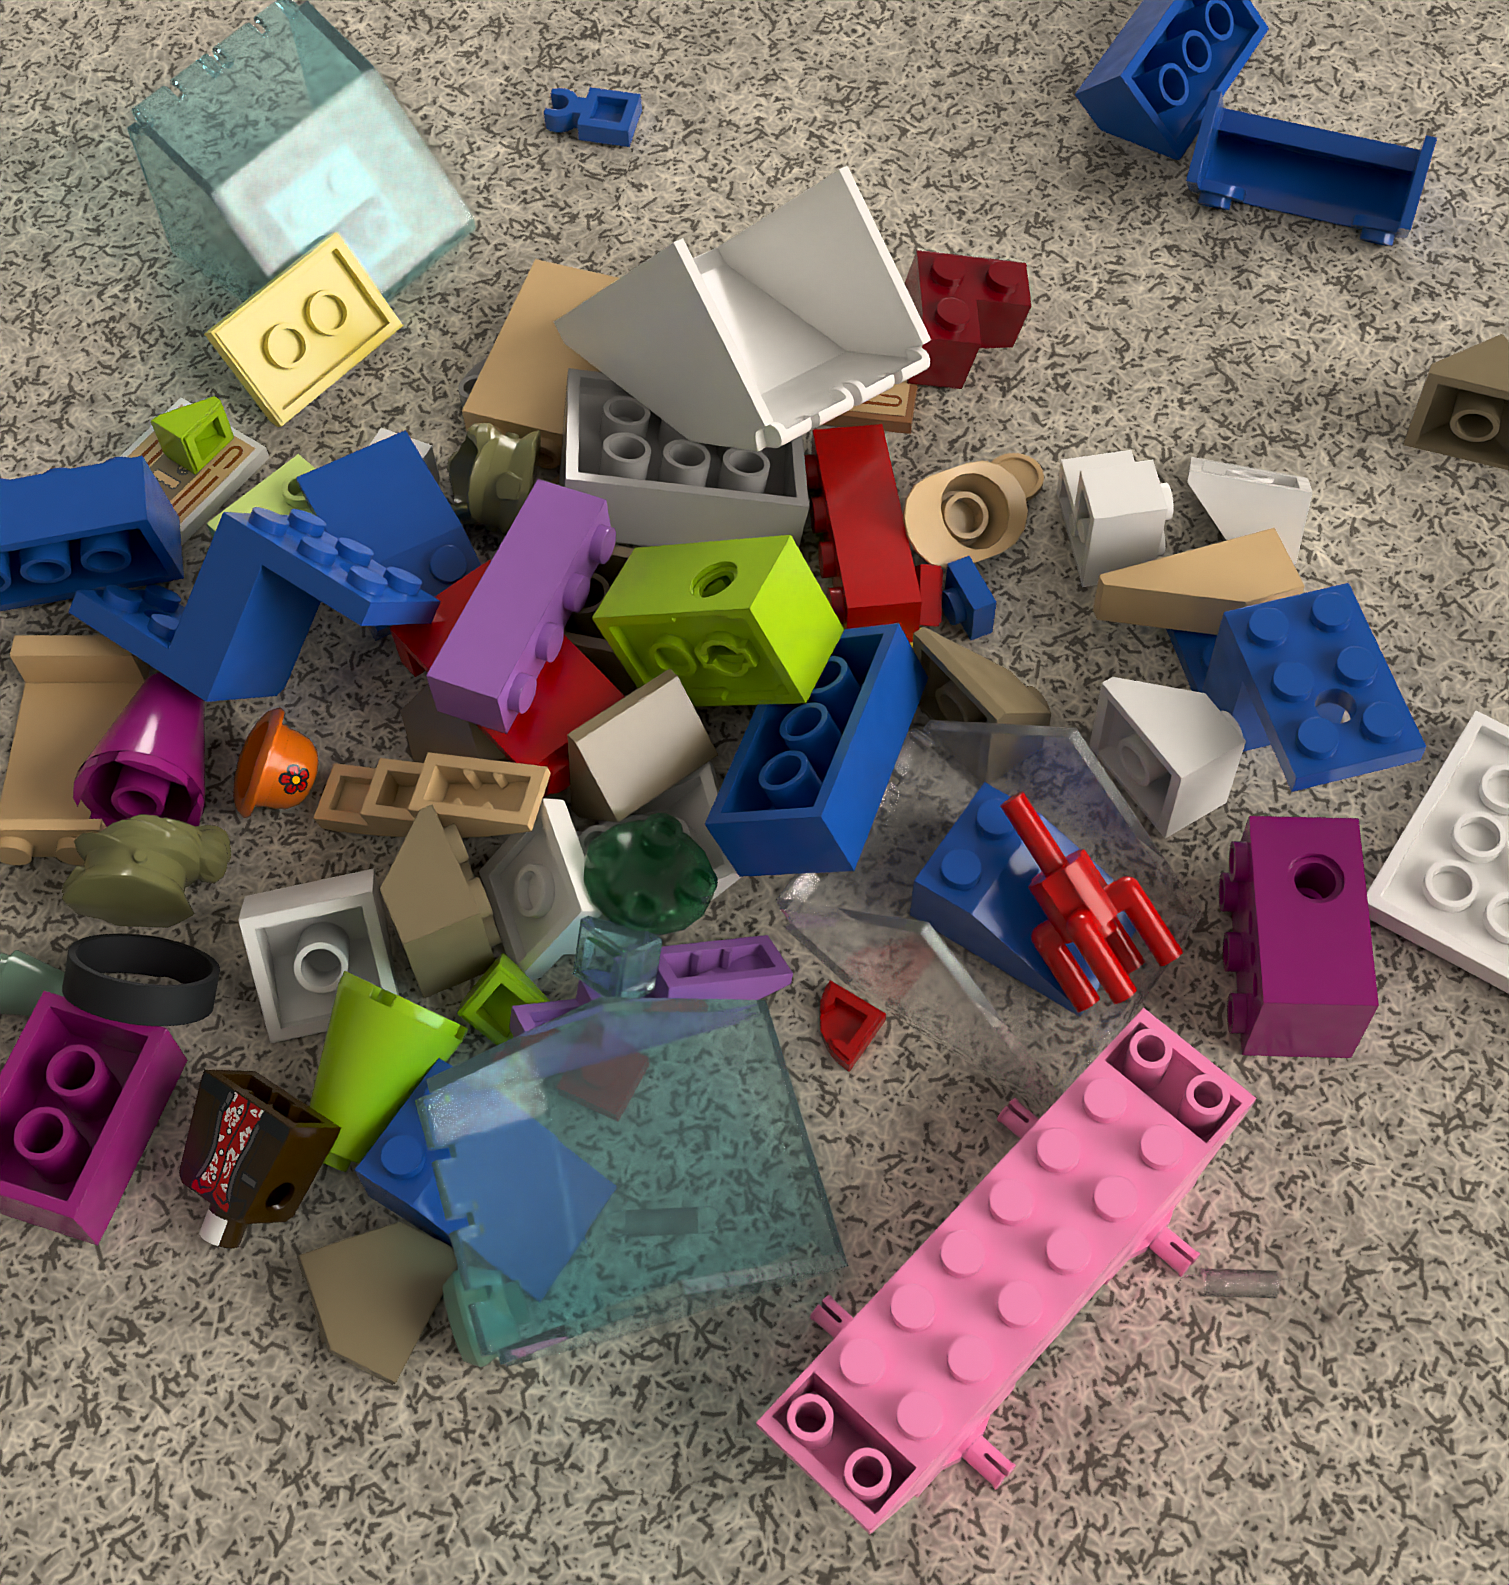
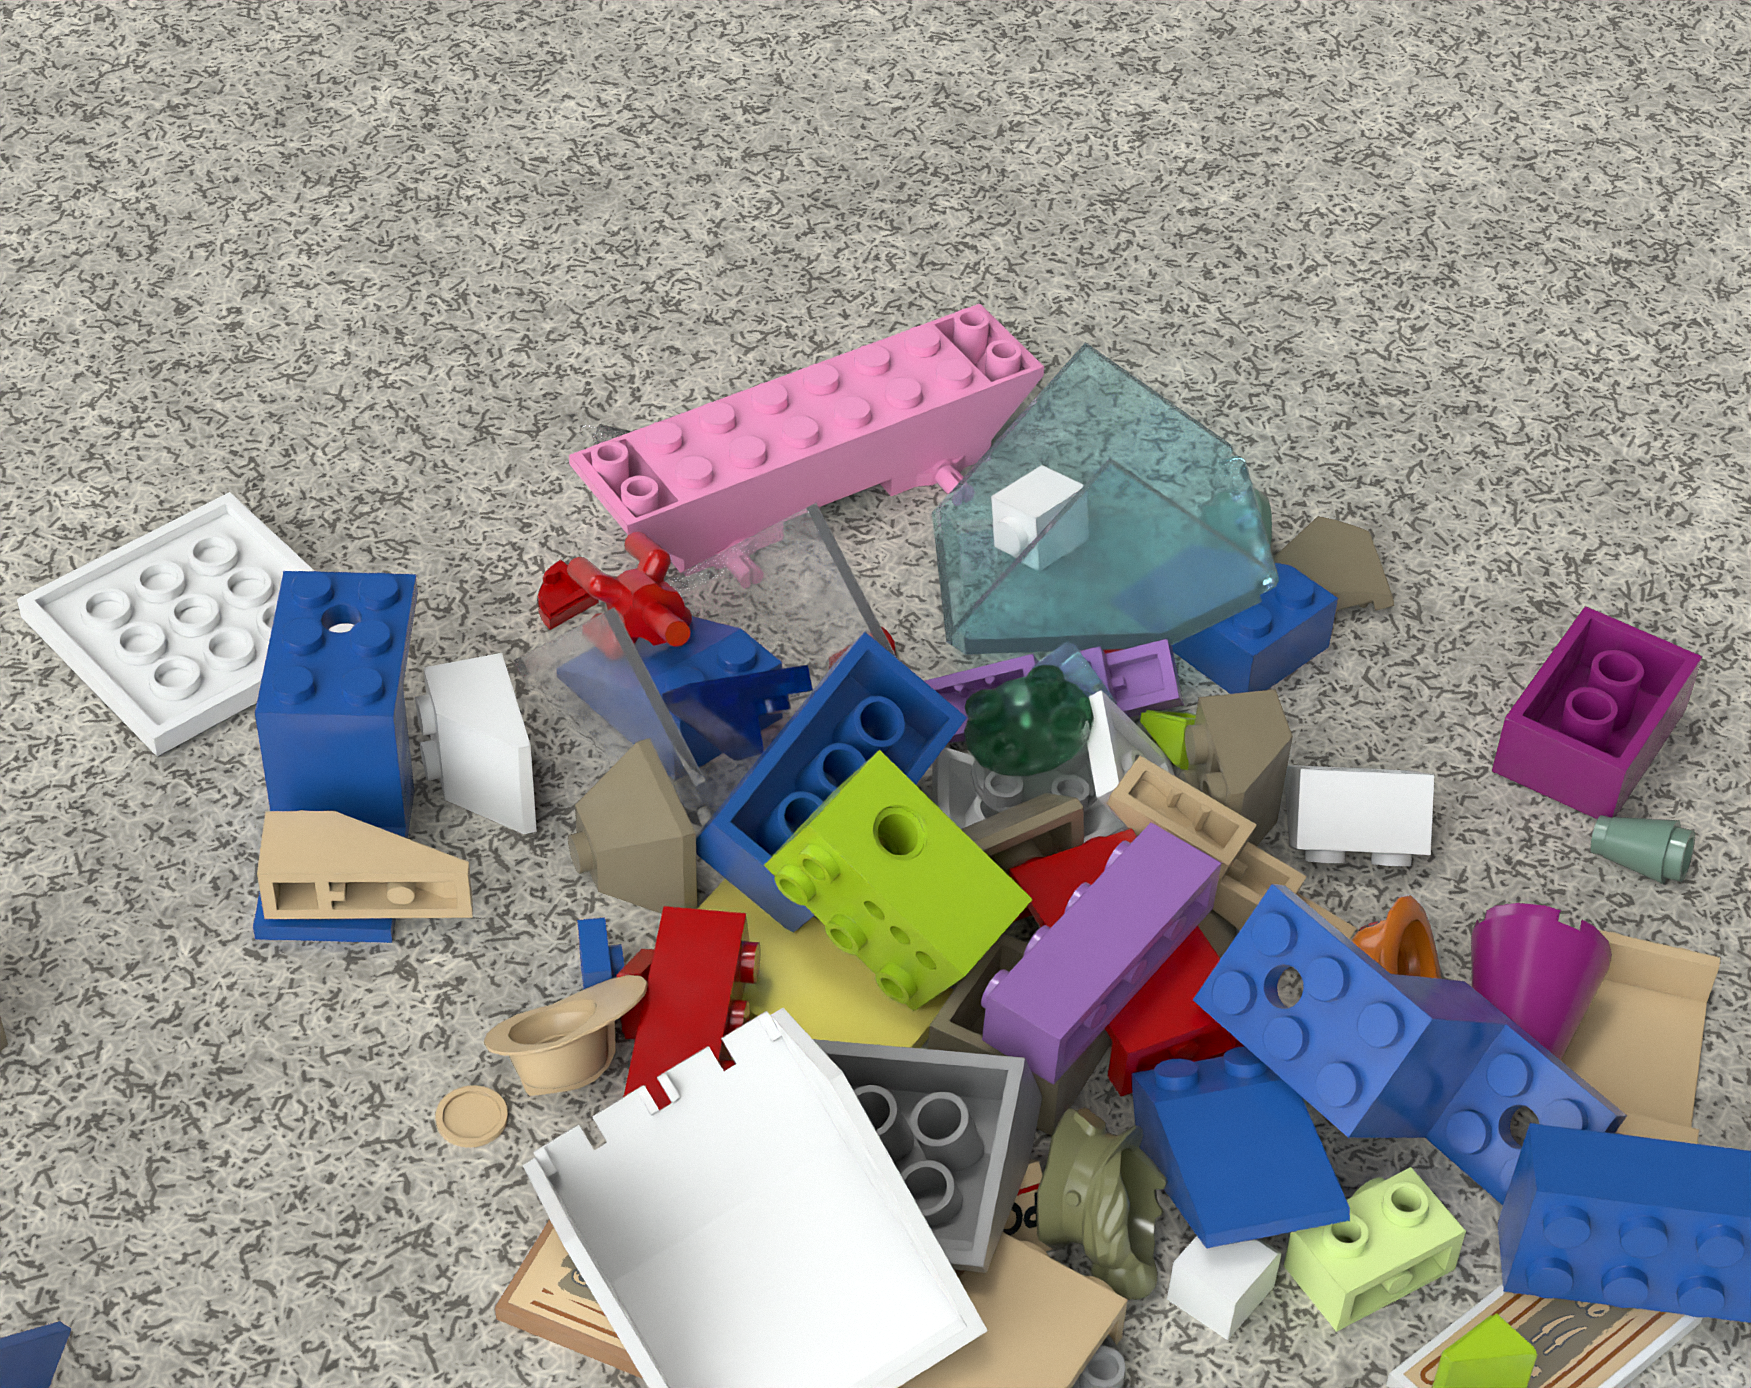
camera: 170 degrees left, 15 degrees down
(135, 1002) = (1465, 794): black tyre -> none
(141, 868) = (1538, 864): olive piece -> none
(251, 1152) = (1429, 647): dark brown torso -> none
(373, 1062) = (1317, 681): lime cone -> none
(712, 1216) = (1028, 507): none -> white brick
(939, 793) = (729, 707): none -> clear blue slope
(965, 308) = (451, 1295): dark red brick -> none
(1113, 512) = (398, 988): white brick -> none
(1200, 1022) = (561, 596): none -> red tile
(1252, 500) = (229, 990): white slope -> none
(1298, 937) = (471, 565): magenta piece -> none

